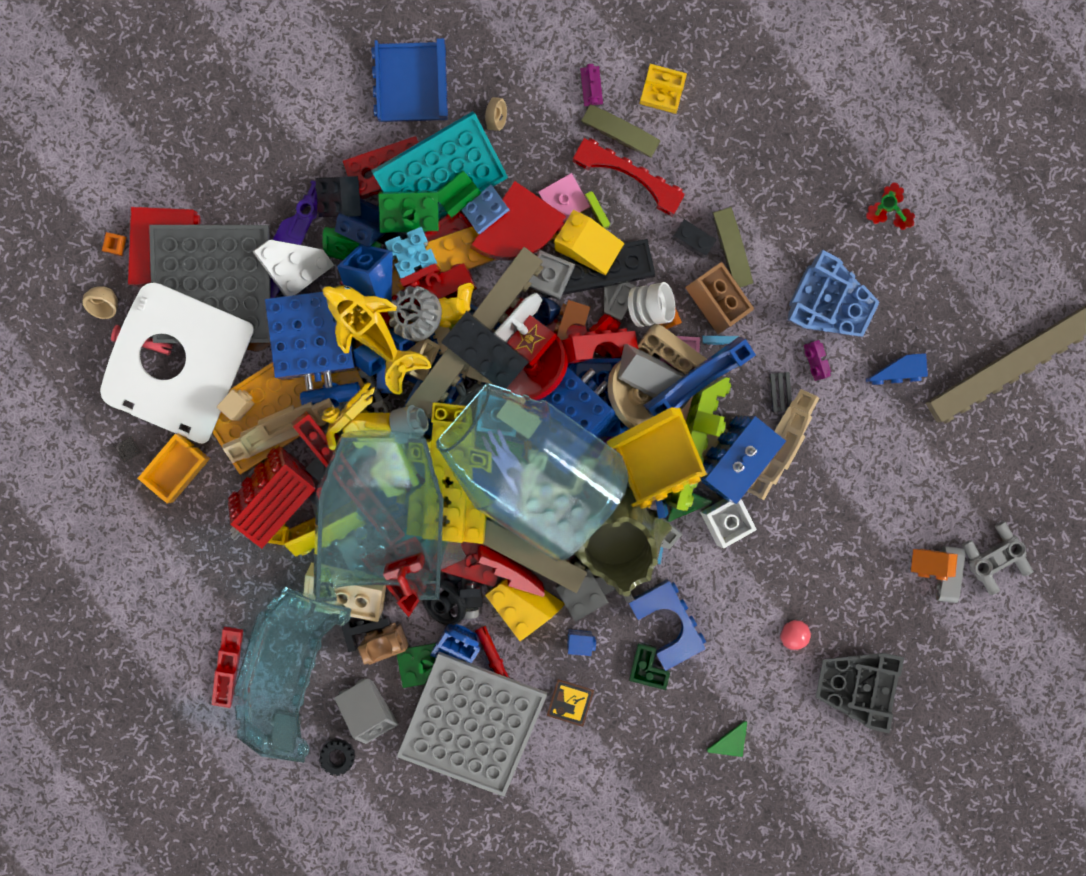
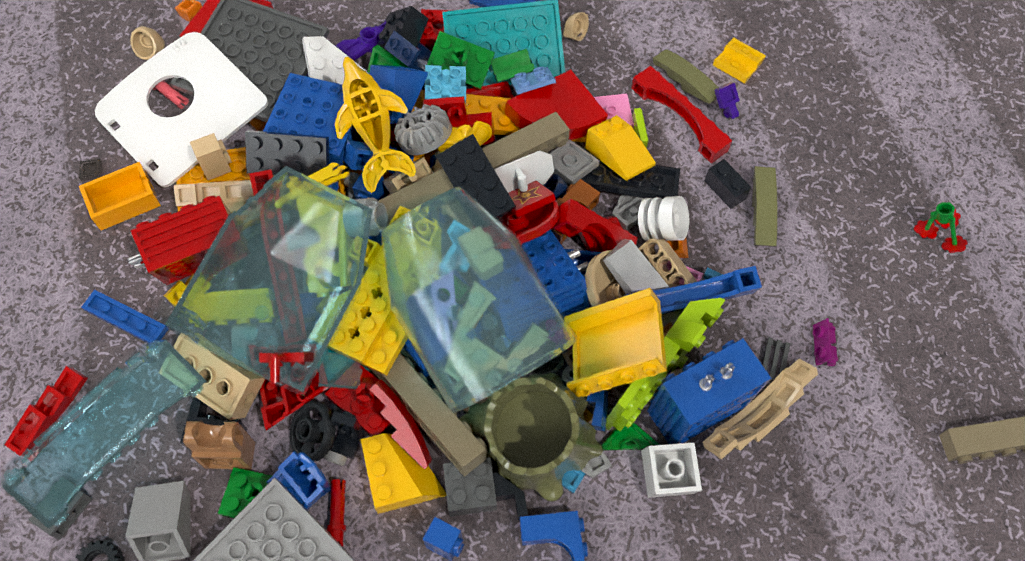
camera: 25 degrees right, 25 degrees down
(242, 570) = (124, 317): none -> blue plate
(306, 383) = (276, 150): none -> plate
(591, 85) = (673, 35): magenta hinge -> none
(666, 147) = (727, 97): none -> dark purple plate
(719, 298) = (735, 241): medium nougat slope -> none
(831, 299) = (860, 286): medium blue wedge -> none
(904, 367) = (922, 385): blue slope -> none

